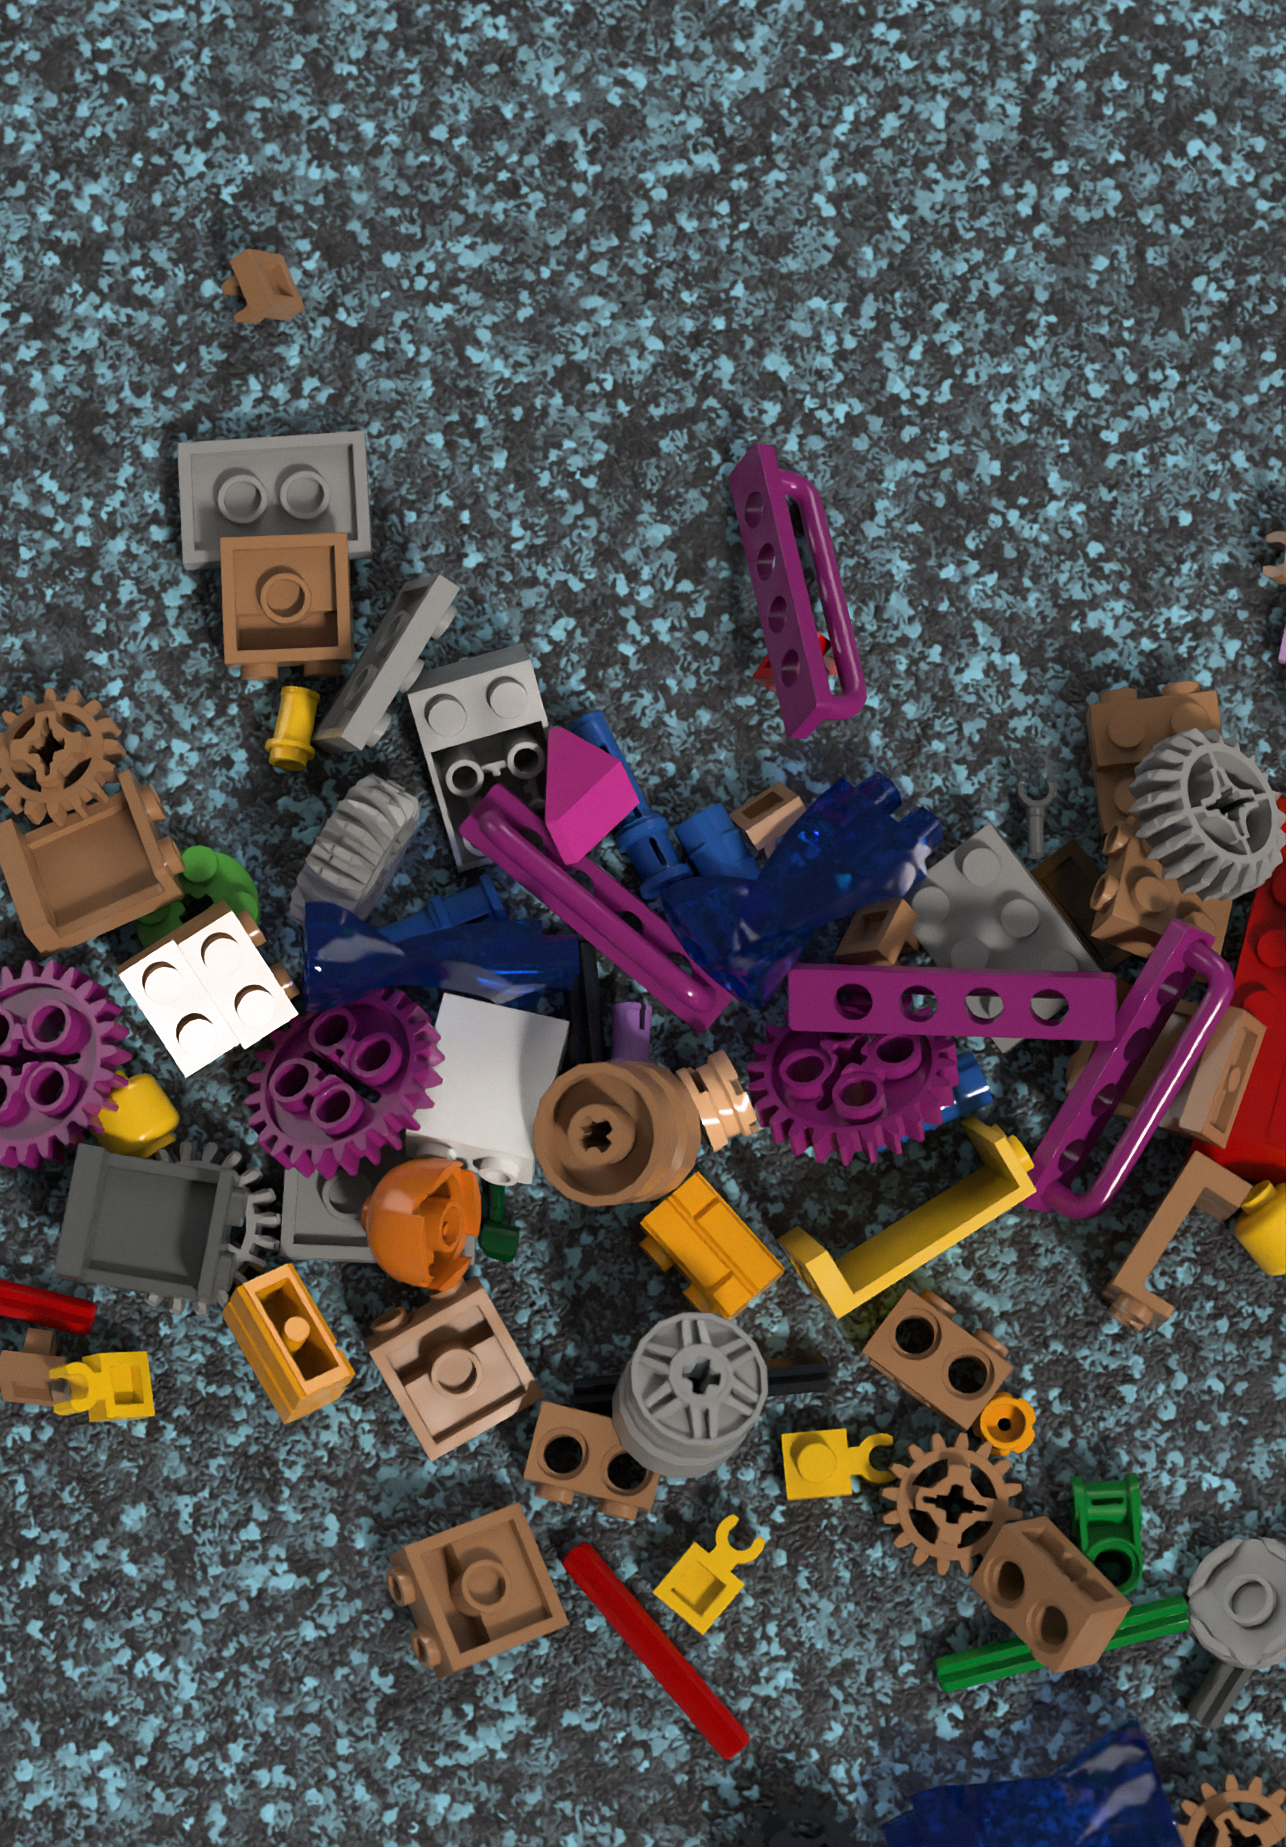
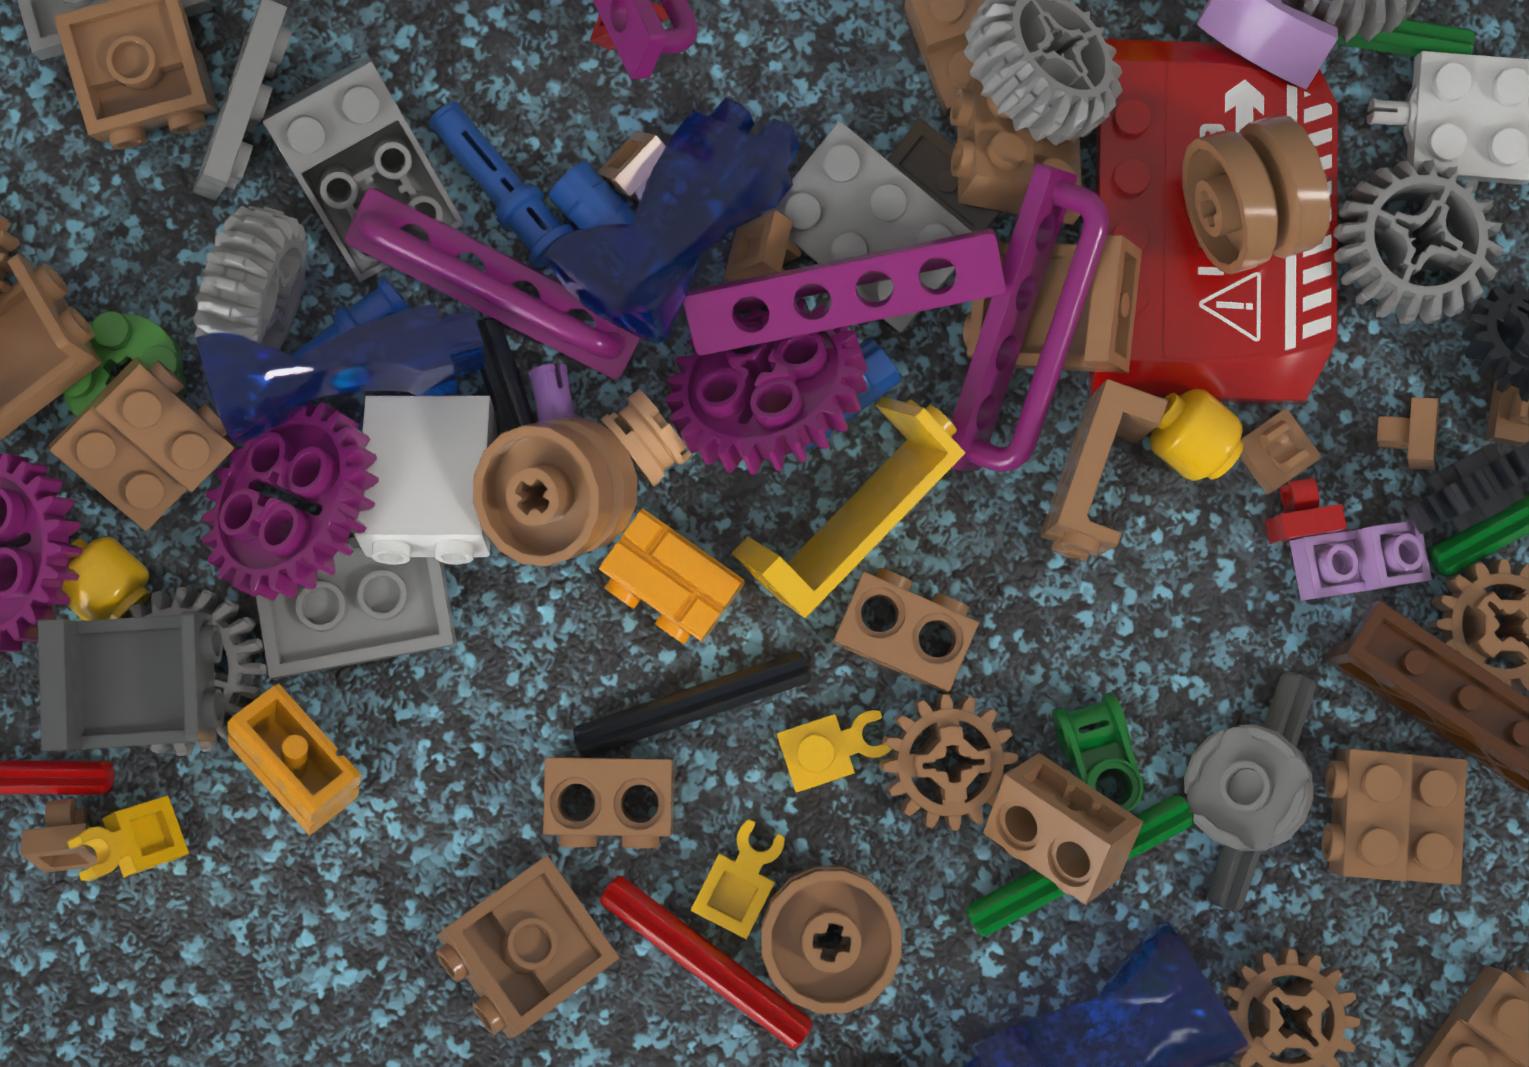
camera: 15 degrees left, 5 degrees up
(293, 729) = (173, 184): yellow pin -> none
(421, 1221) = (391, 617): orange cylinder -> none
(451, 1366) = (453, 743): medium nougat plate -> none
(498, 1238) = (471, 613): dark green hand -> none
(584, 794) = (452, 179): dark pink slope -> none
(669, 1424) = (652, 744): light grey wheel -> none
(827, 1643) = (840, 975): none -> medium nougat wheel
(1021, 1418) = (996, 680): light orange plate -> none
(1035, 815) = (879, 105): dark grey hand -> none

